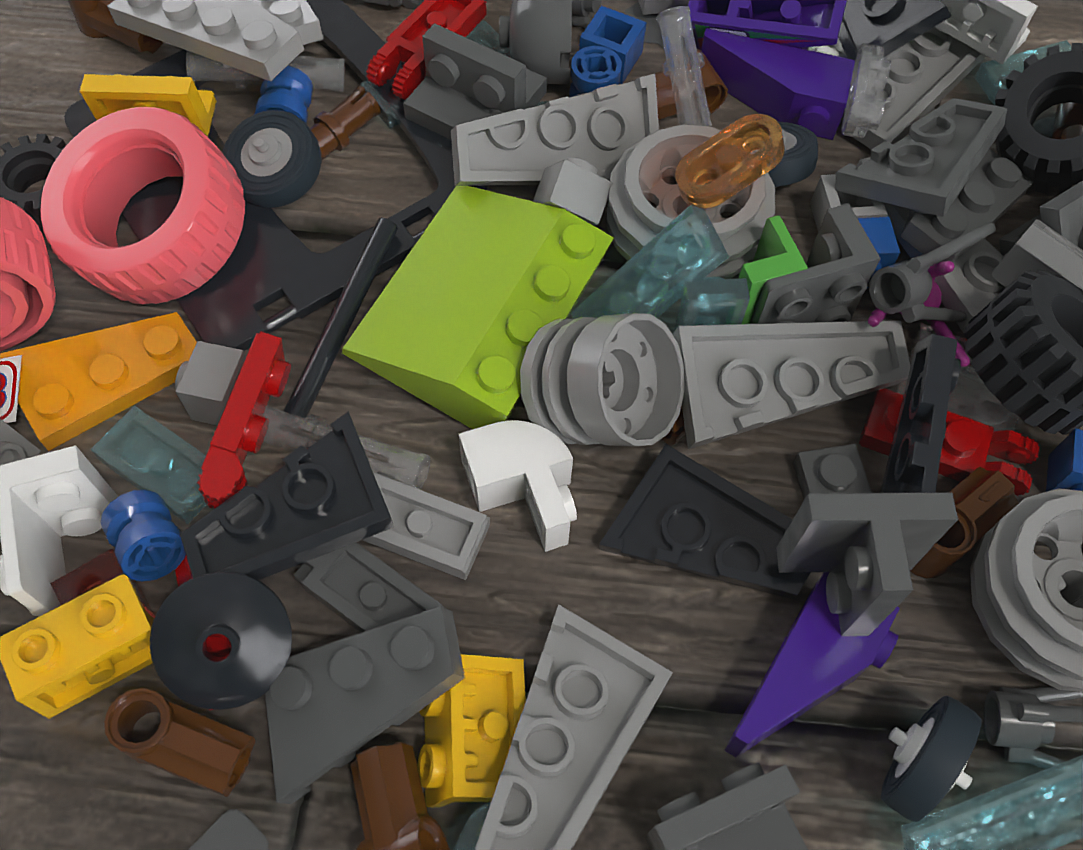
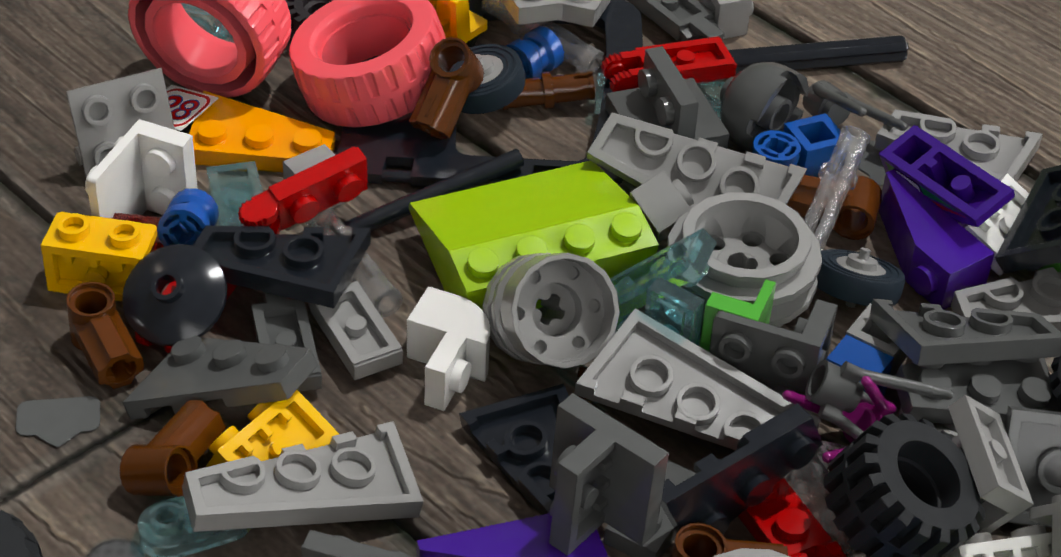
camera: 40 degrees right, 20 degrees down
(264, 202) = (446, 90): none -> reddish brown piece
(727, 160) = (777, 232): clear orange plate -> none
(863, 105) = (972, 272): clear plate -> none

